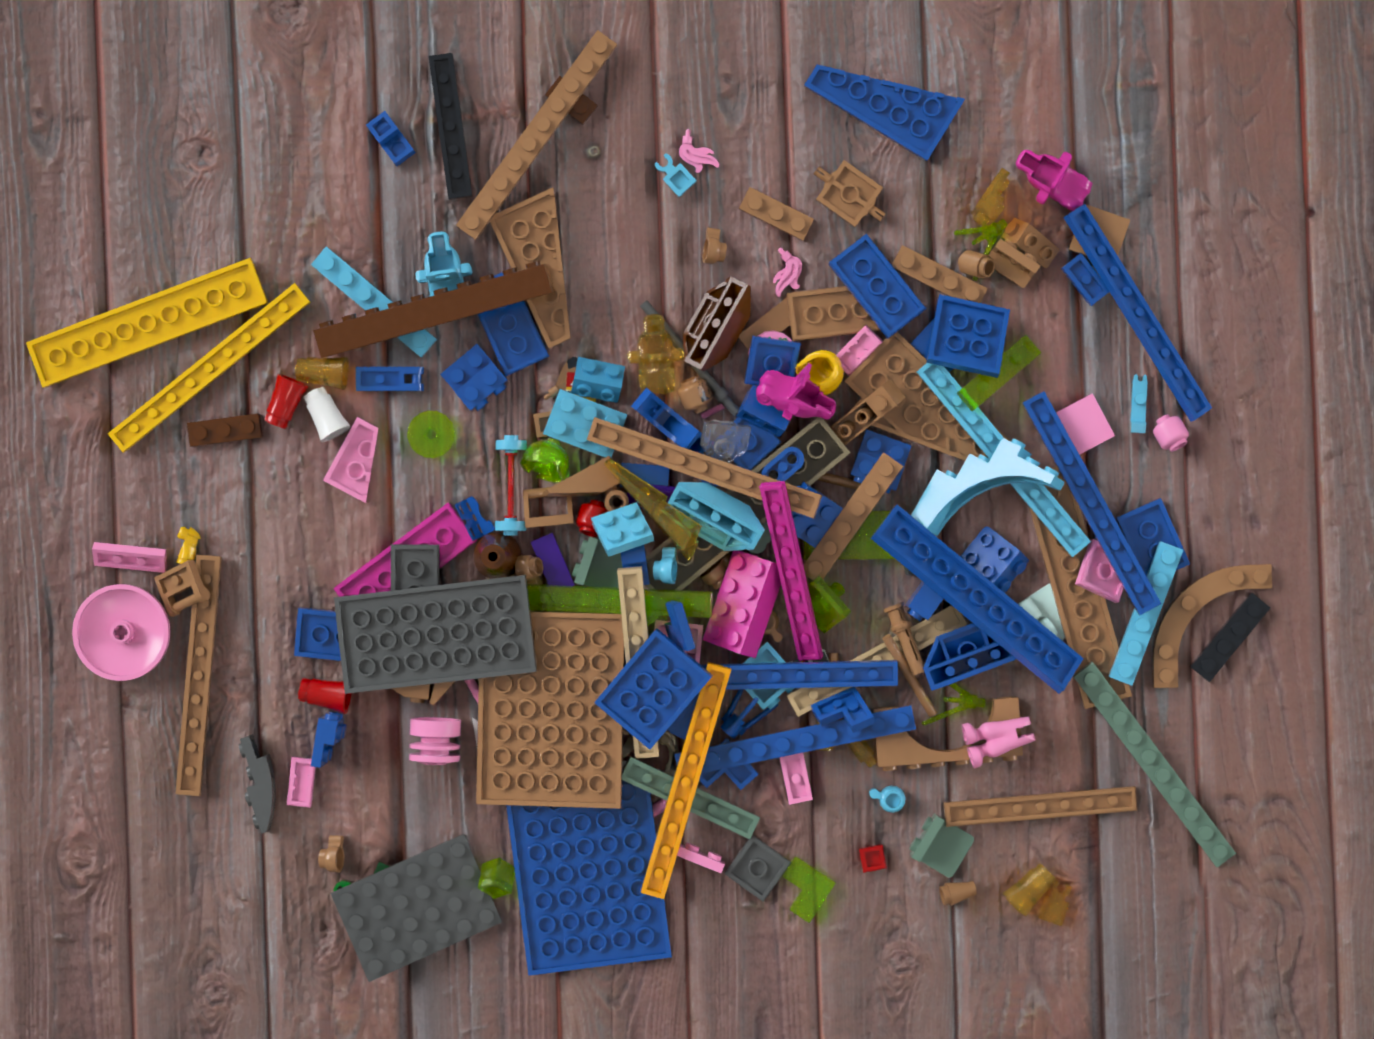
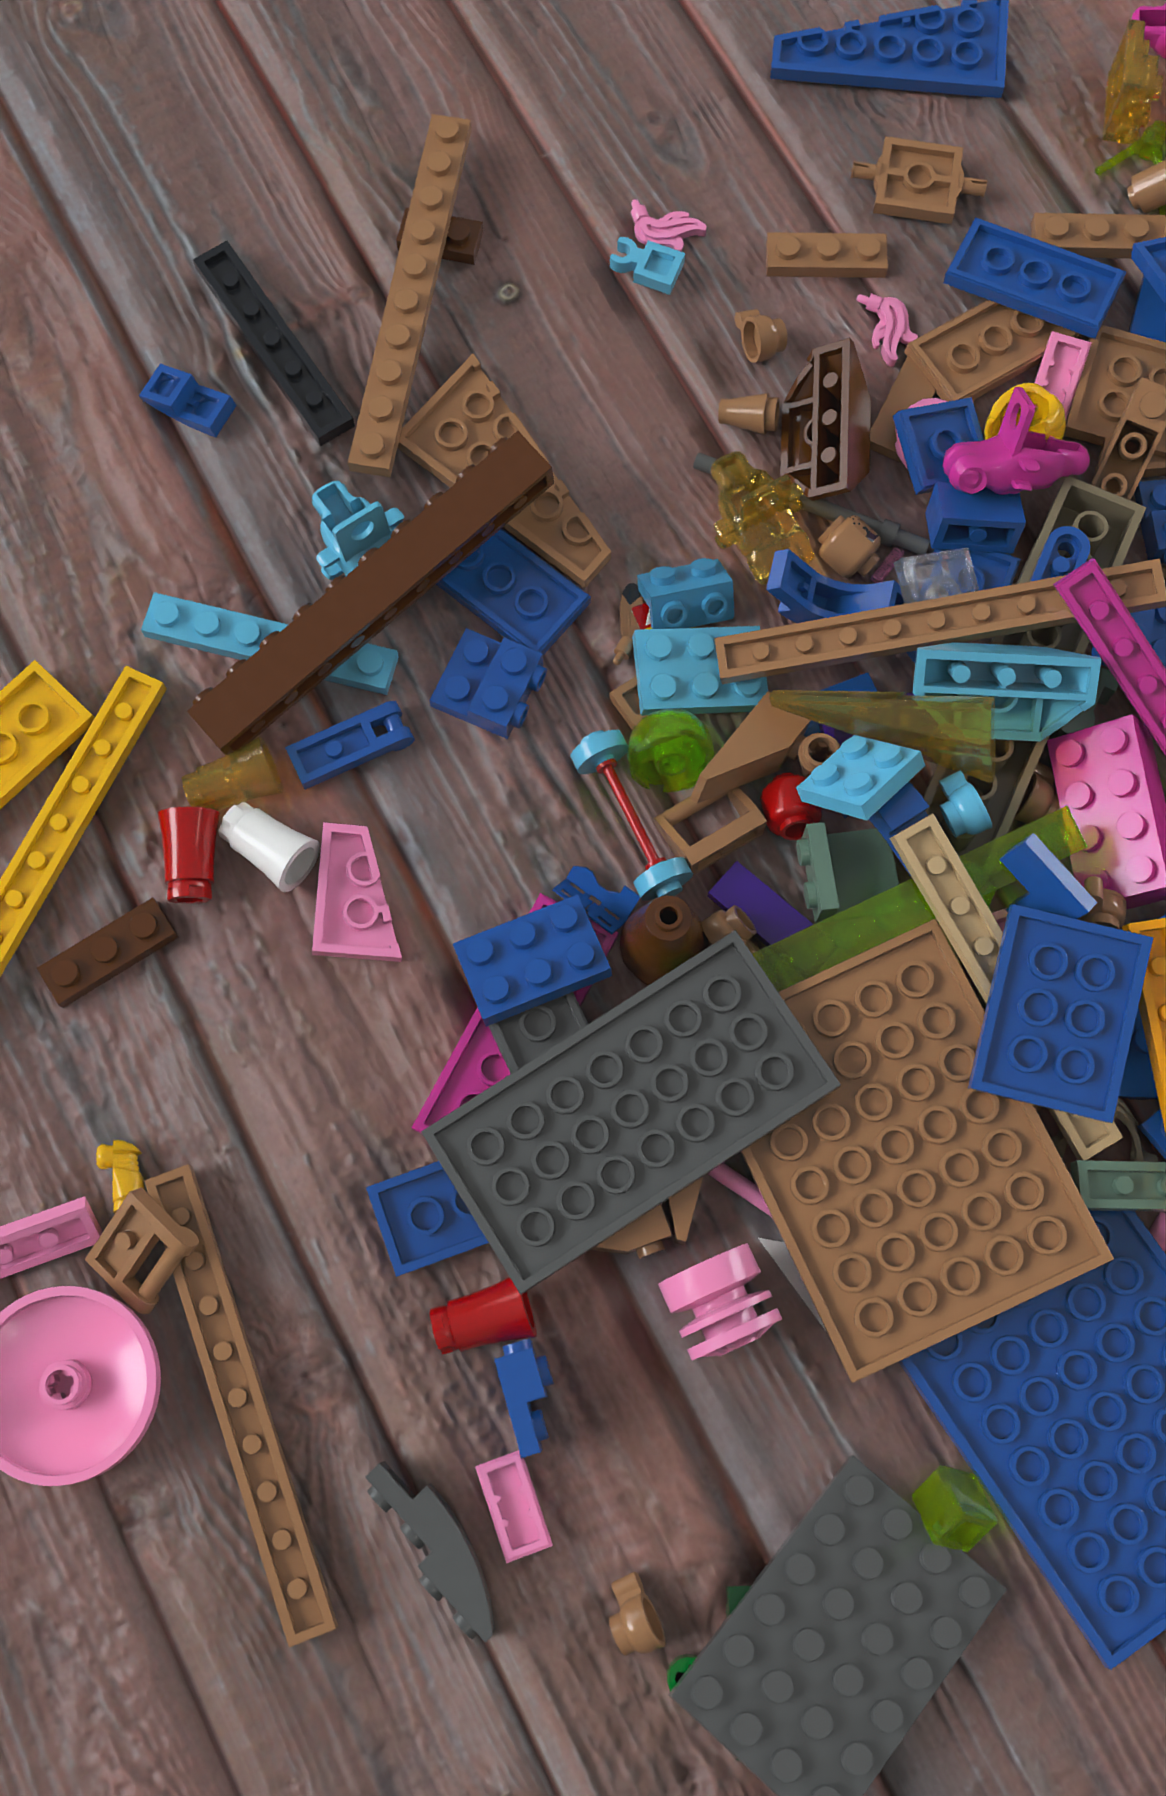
camera: 25 degrees left, 15 degrees down
(419, 429) = (455, 778): clear neon green plate -> none
(426, 537) = (532, 960): none -> blue plate
(685, 292) = (752, 413): none -> medium nougat cone
(706, 648) = (1110, 905): none -> medium nougat piece

